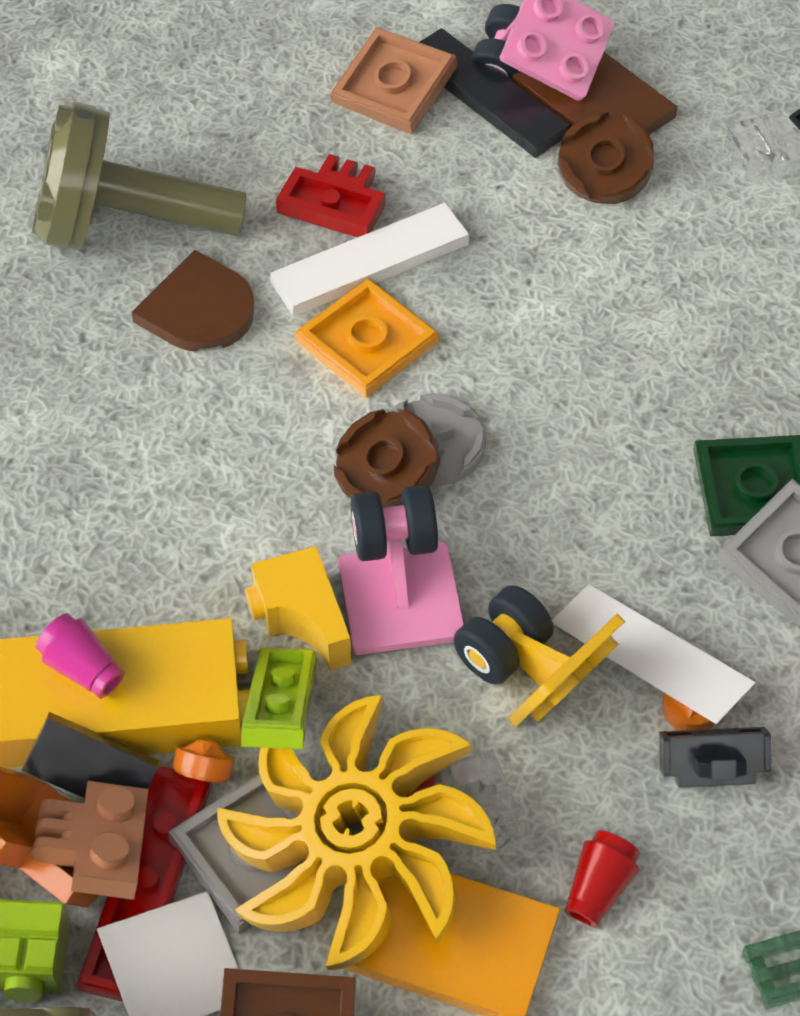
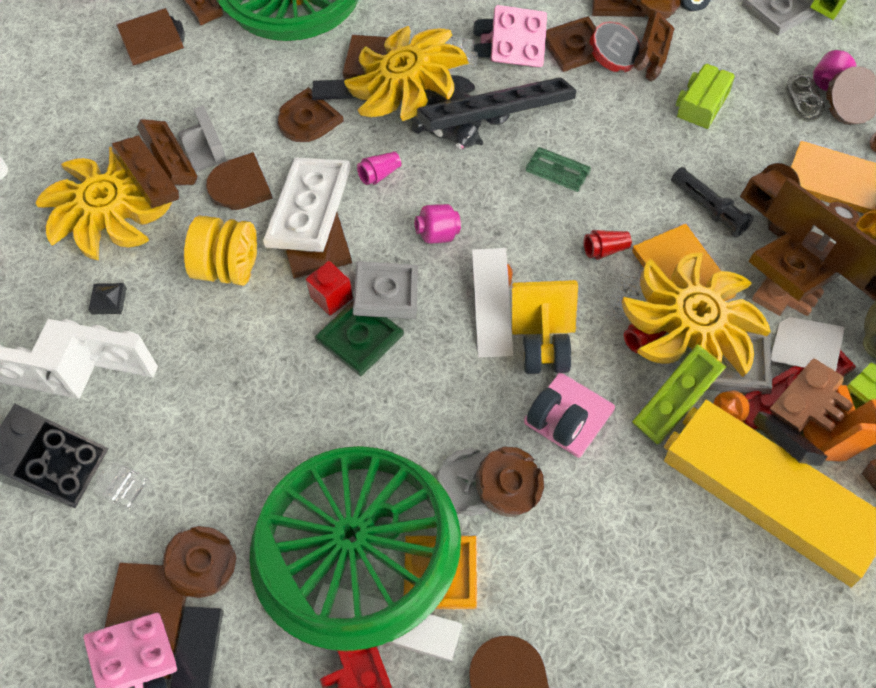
camera: 130 degrees left, 5 degrees up
(78, 654) = (765, 478): dark pink cone -> none
(299, 601) = (621, 445): yellow arch -> none
(477, 277) = (288, 603): none -> green piece
(715, 756) = (517, 244): black piece -> none

